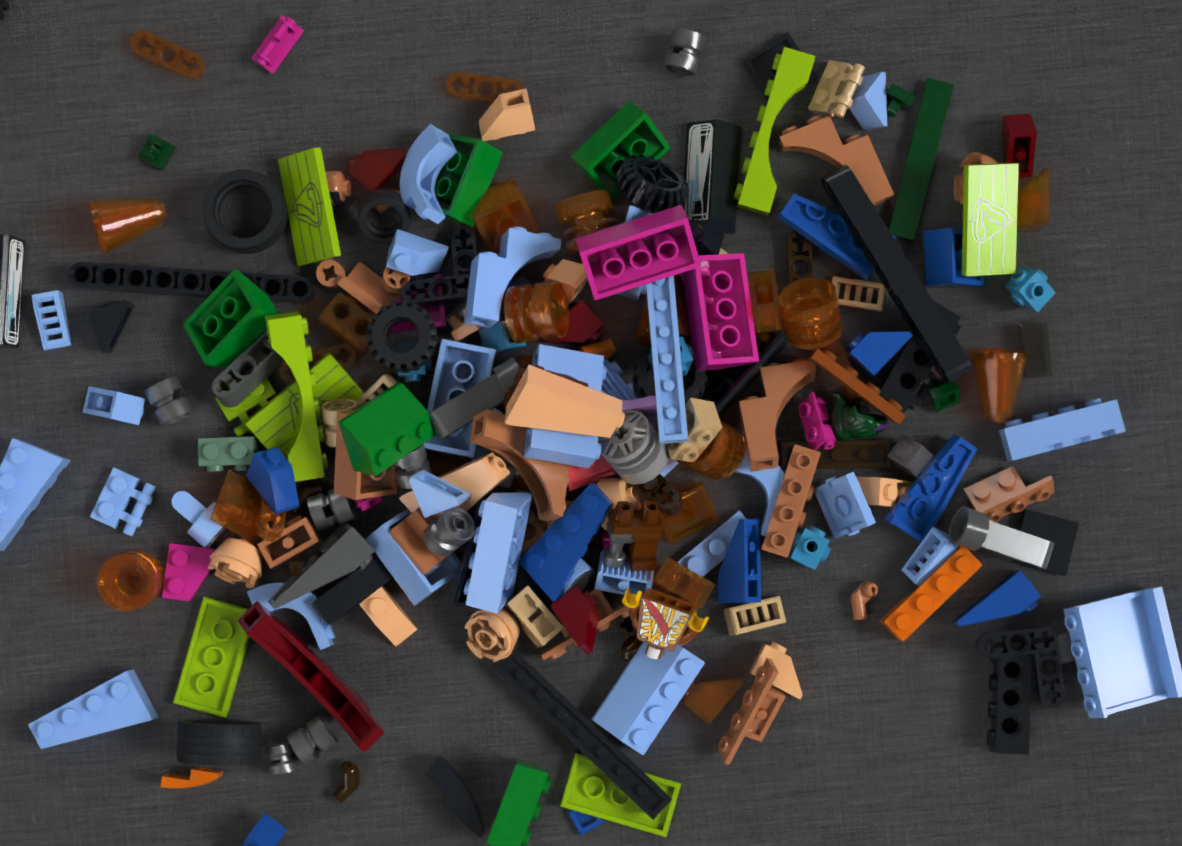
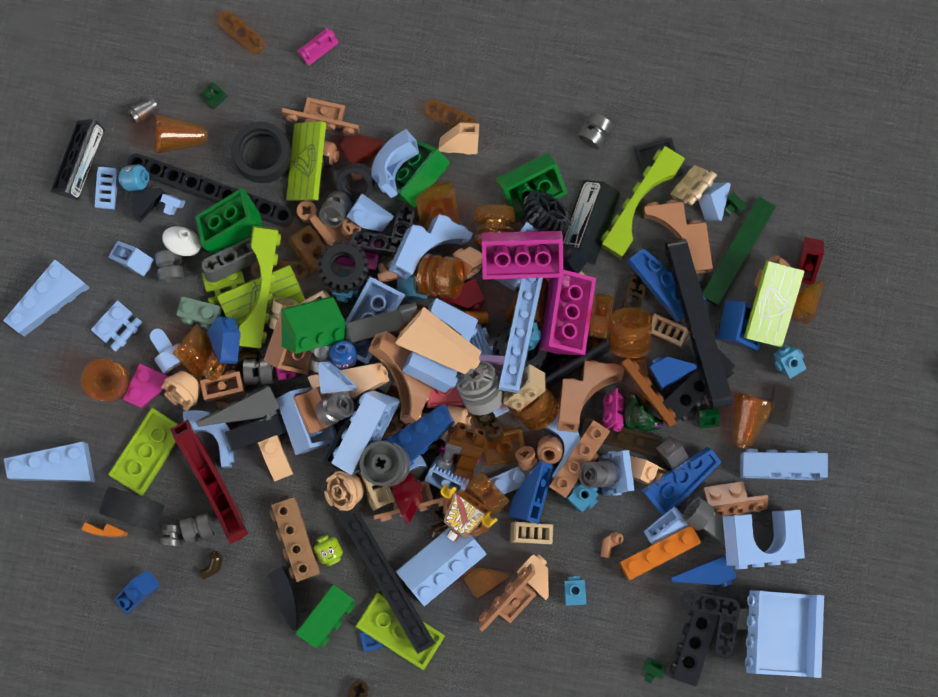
camera: 15 degrees right, 5 degrees down
(67, 201) = (141, 111): none -> flat silver cone
(84, 297) = (133, 177): none -> dark azure head
(146, 315) = (172, 203): none -> light blue tile
(175, 363) = (181, 241): none -> white dish
(309, 133) = (324, 111): none -> nougat bracket
(367, 260) = (335, 209): none -> flat silver wheel
(438, 456) = (343, 355): none -> blue head
(448, 716) = (296, 540): none -> medium nougat brick
(494, 717) = (328, 550): none -> lime head
(521, 588) = (388, 474): none -> dark grey wheel
(720, 520) = (526, 458): none -> nougat wheel
(747, 499) = (549, 449): none -> nougat head
(822, 514) = (598, 474): none -> flat silver wheel
(834, 676) = (574, 591): none -> dark azure brick
(965, 747) = (653, 669): none -> dark green tile
(1093, 537) = (785, 547): none -> light blue arch

